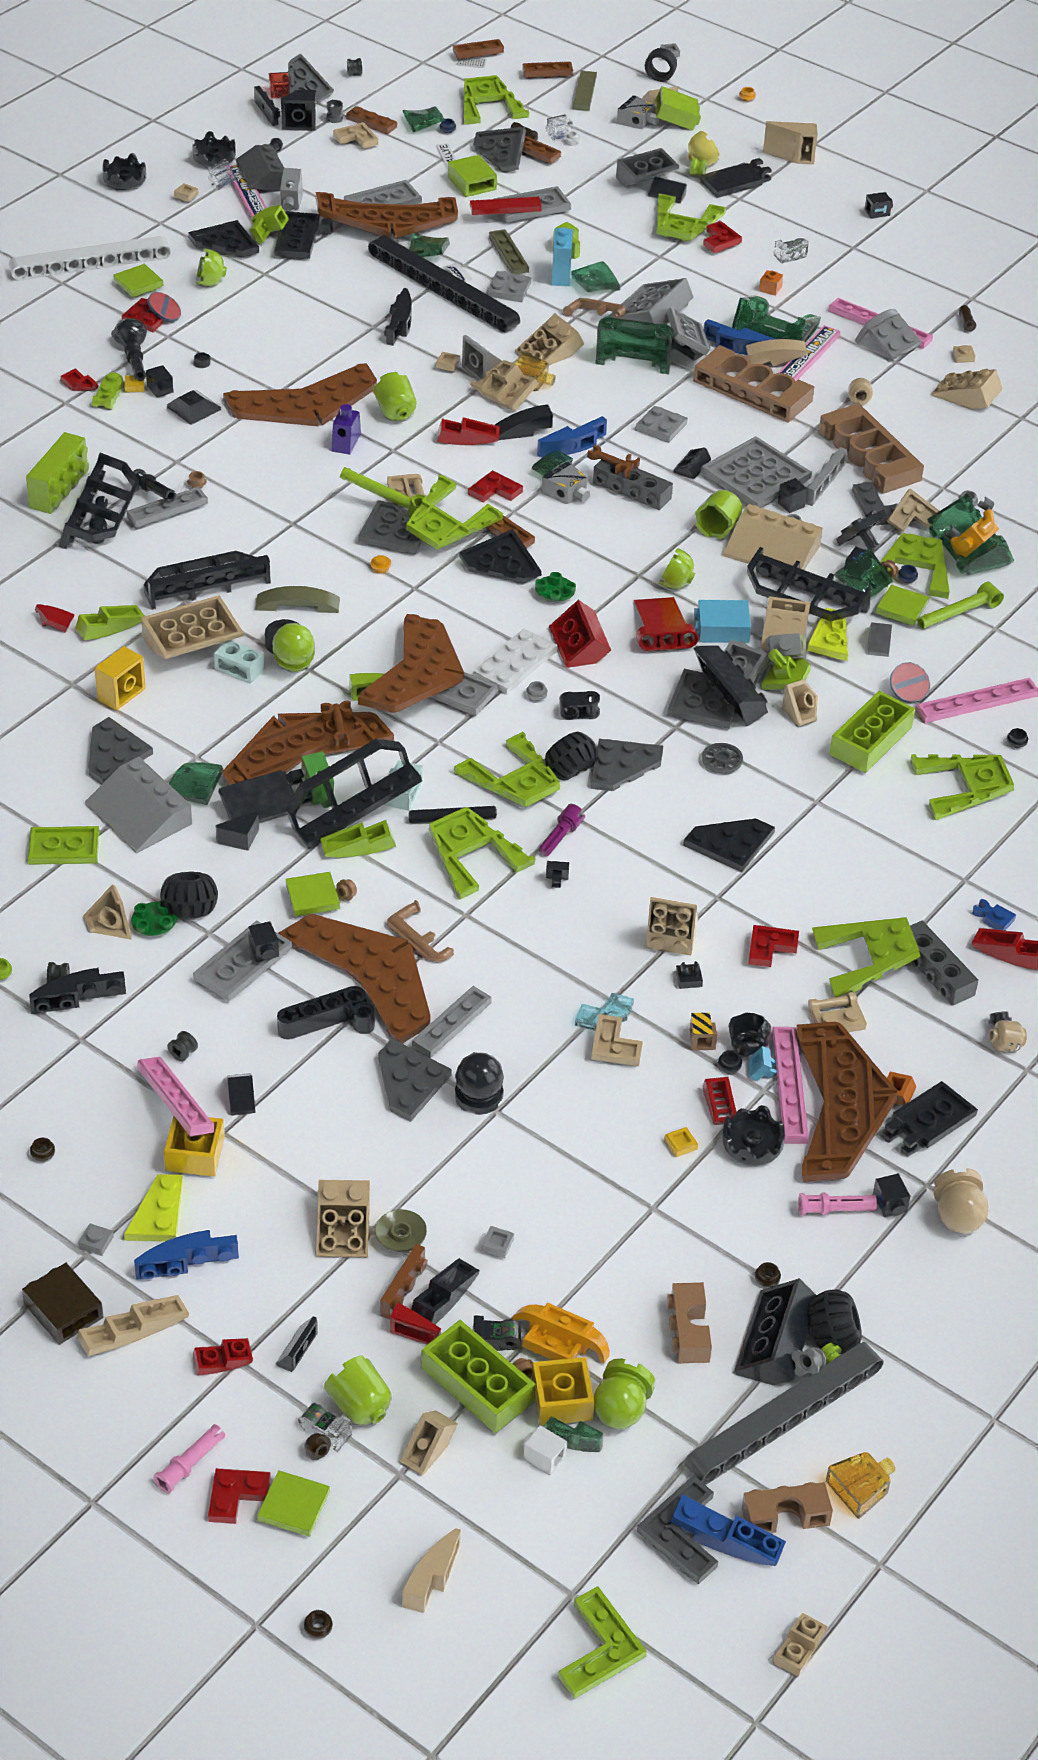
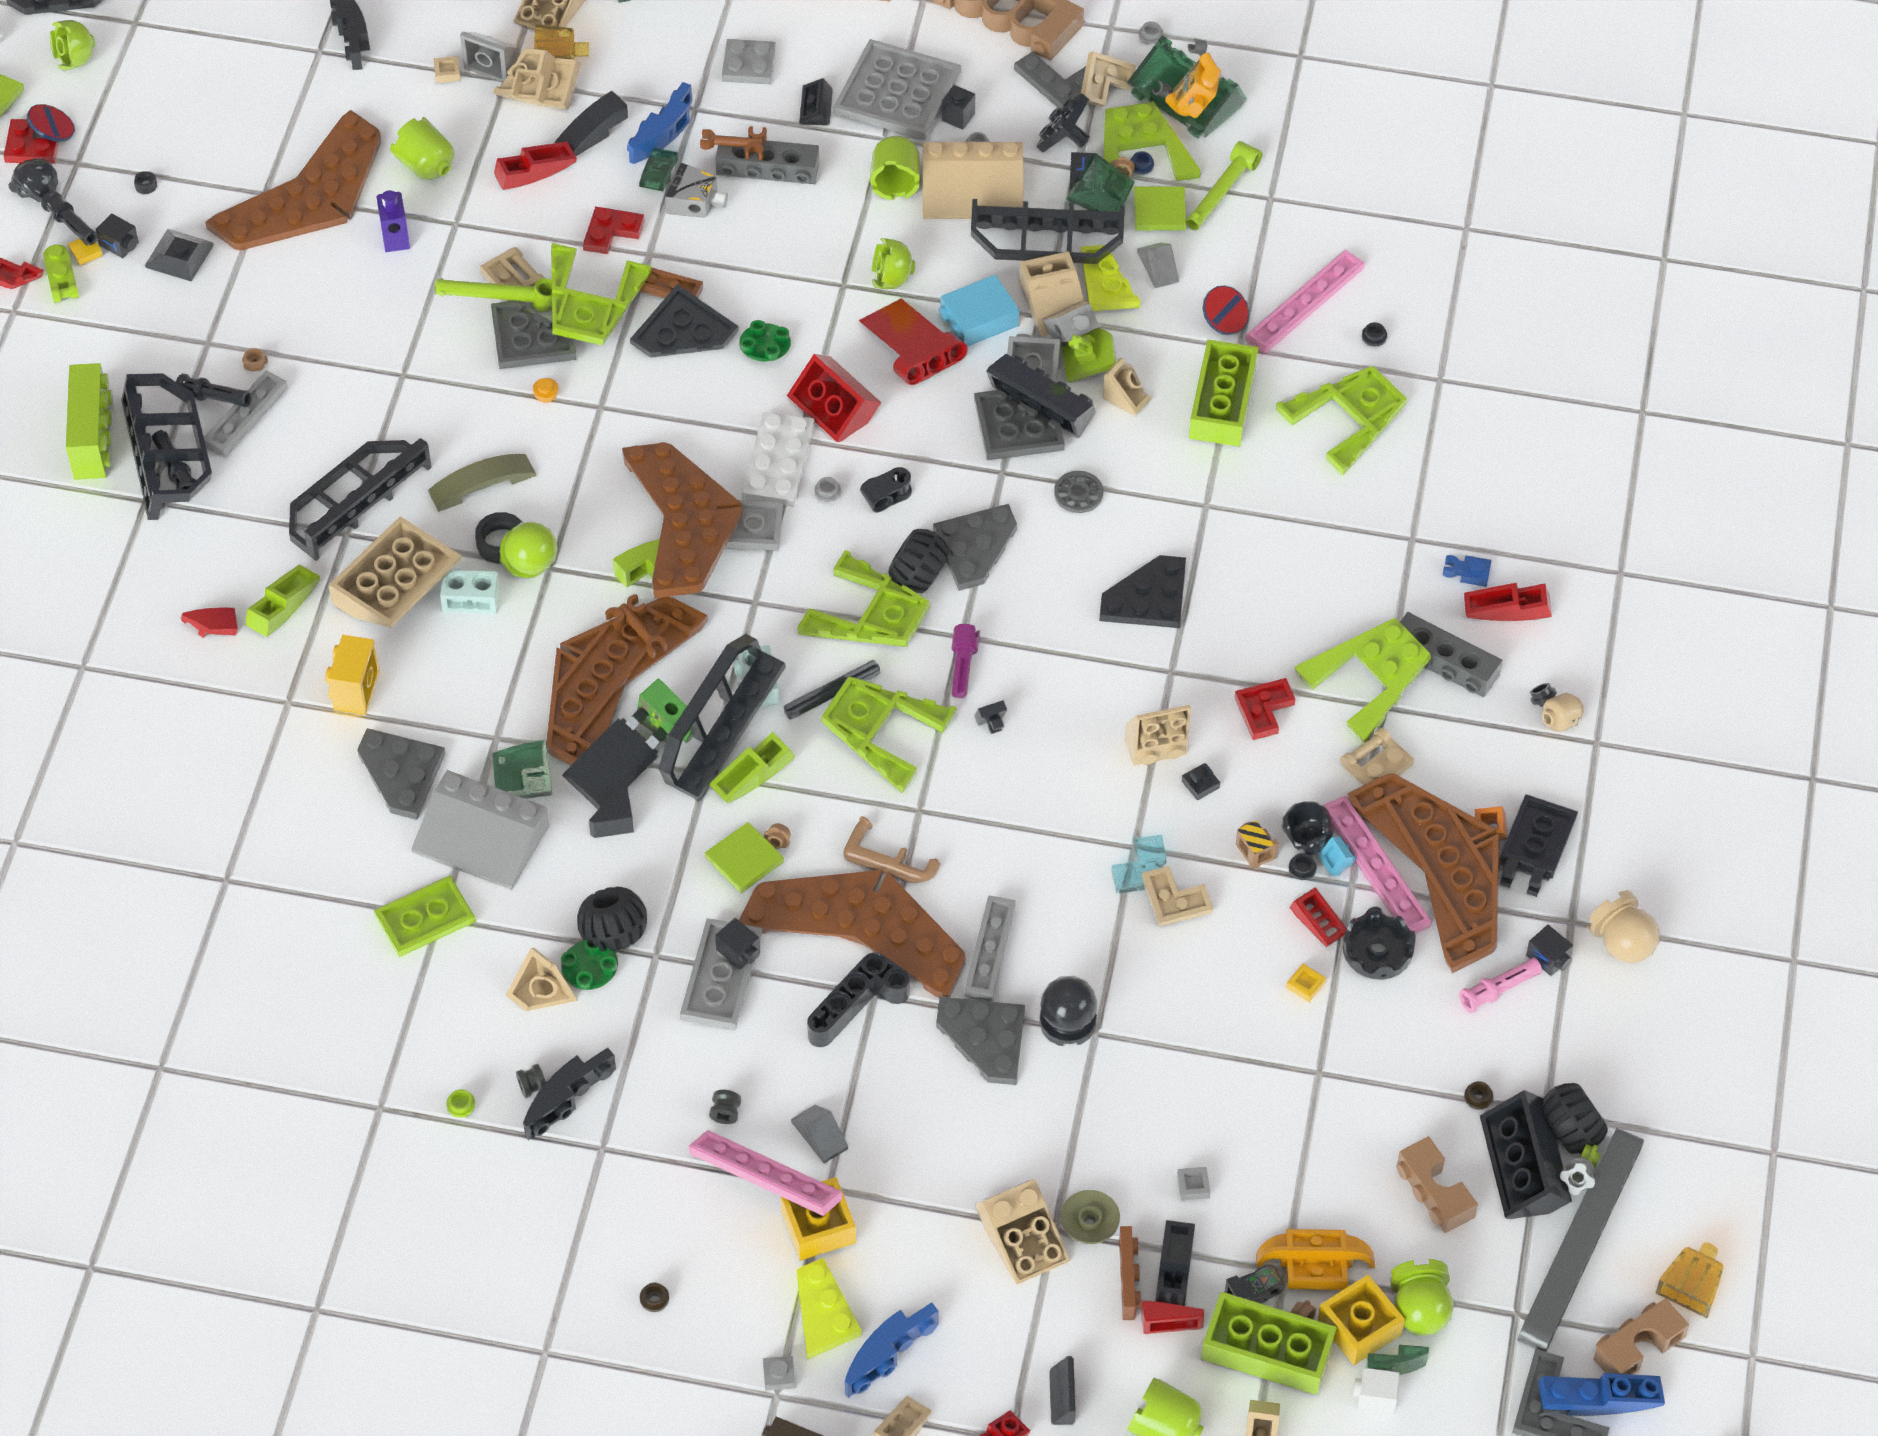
camera: 25 degrees left, 10 degrees up
(826, 476) = (978, 56): light grey plate -> none

